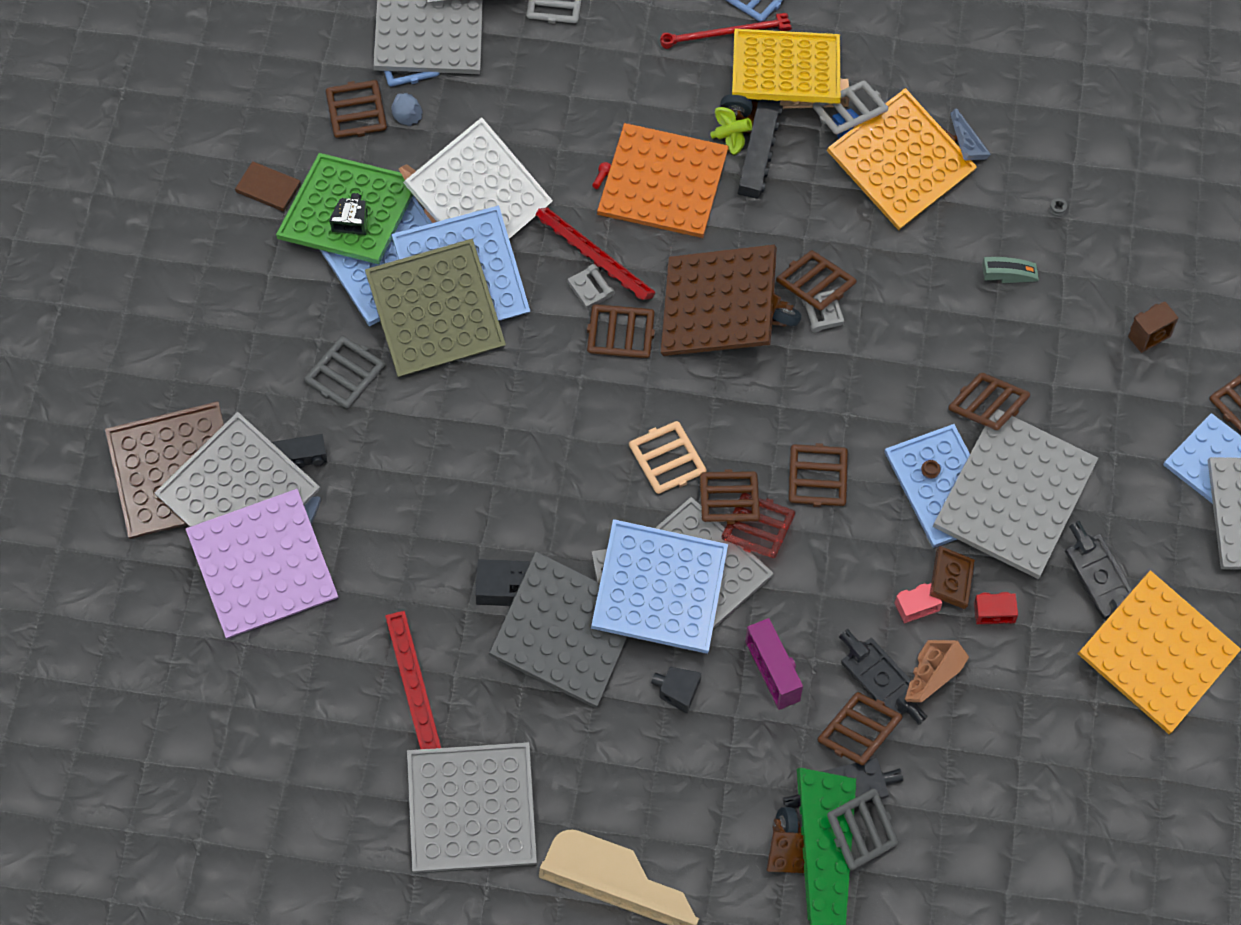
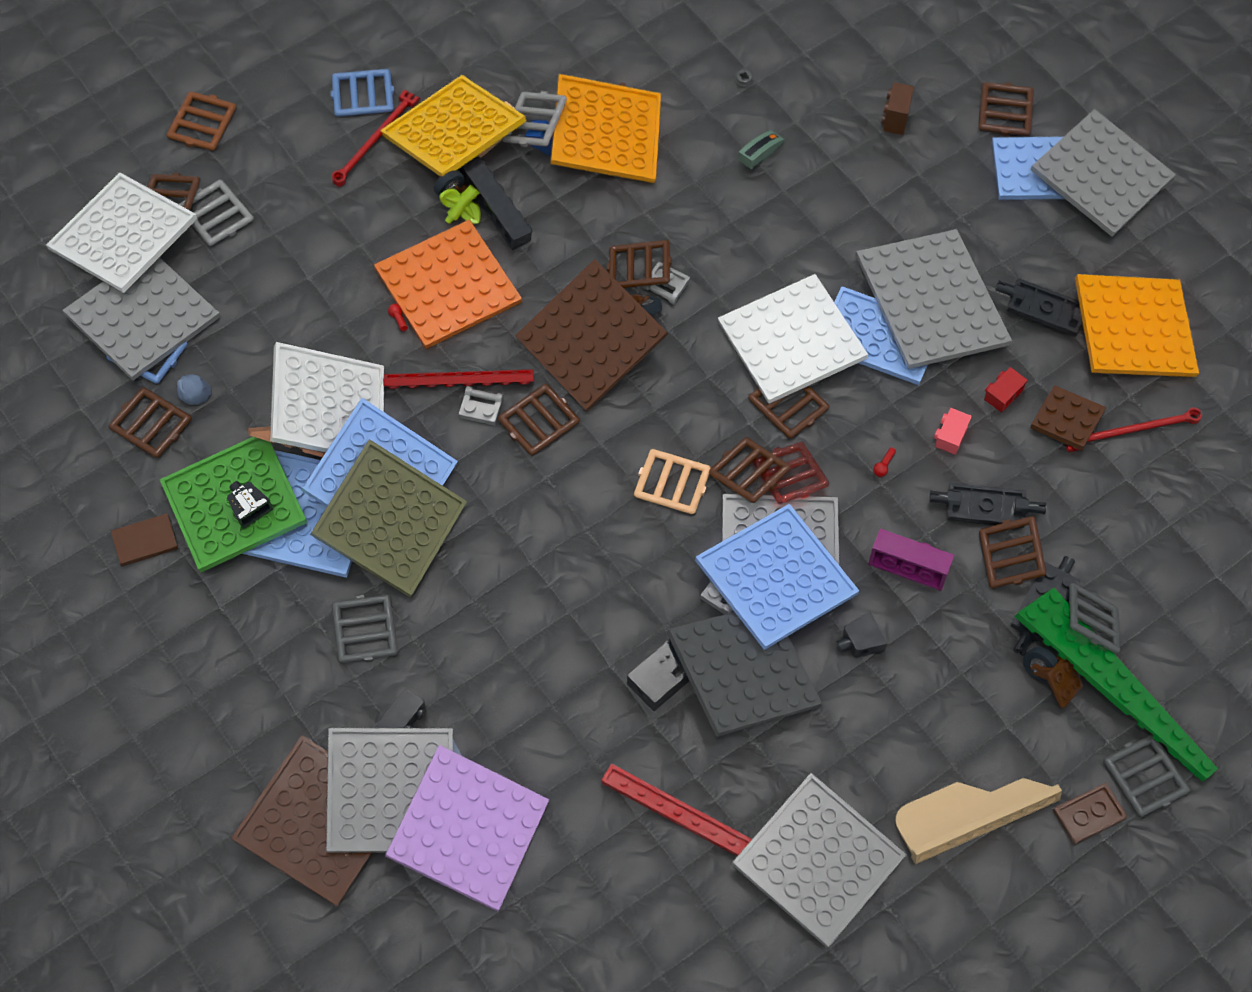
camera: 45 degrees left, 0 degrees up
(831, 582) = (881, 468): none -> red bar
(871, 430) = (792, 338): none -> white plate
(930, 469) = (863, 330): reddish brown plate -> none
(937, 665) = (1015, 465): nougat wedge -> none
(952, 577) = (957, 393): reddish brown tile -> none
(969, 143) = (638, 80): sand blue wing -> none
(984, 418) = (860, 265): reddish brown bar -> none
(1010, 694) = (1146, 425): none -> red hinge
(1022, 672) = (1068, 417): none -> reddish brown plate

